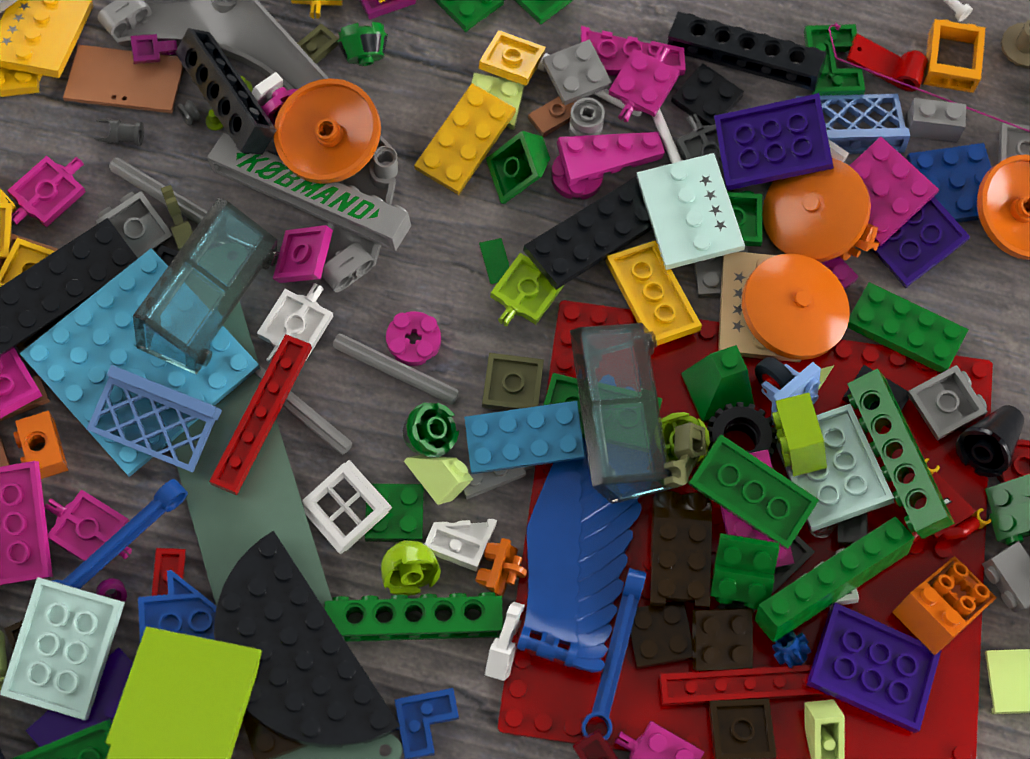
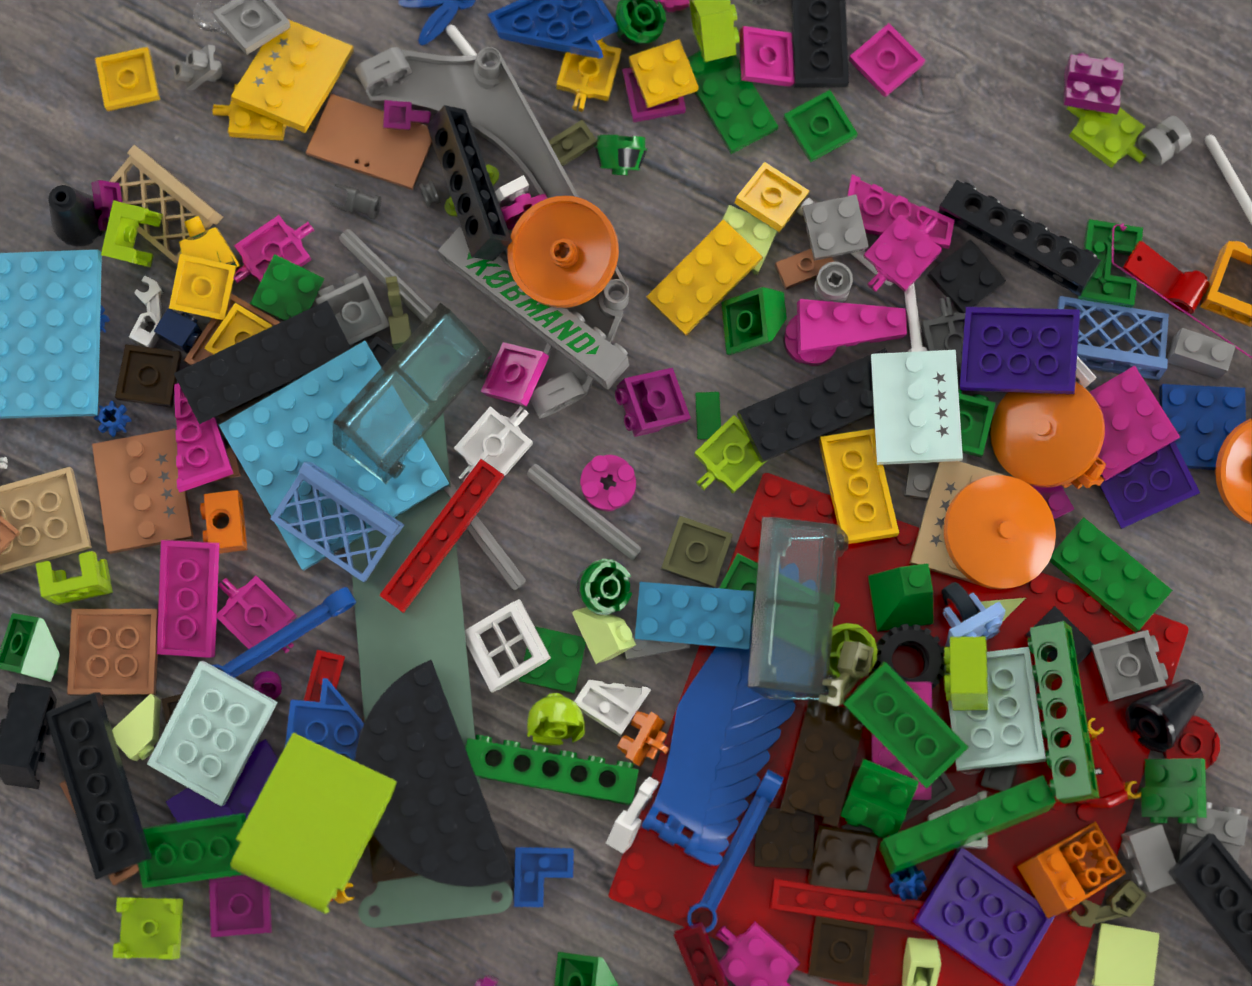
camera: 15 degrees right, 10 degrees up
(64, 218) = (286, 289): none -> green plate
(439, 256) = (651, 402): none -> magenta plate
(976, 643) = (1097, 914): none -> olive piece

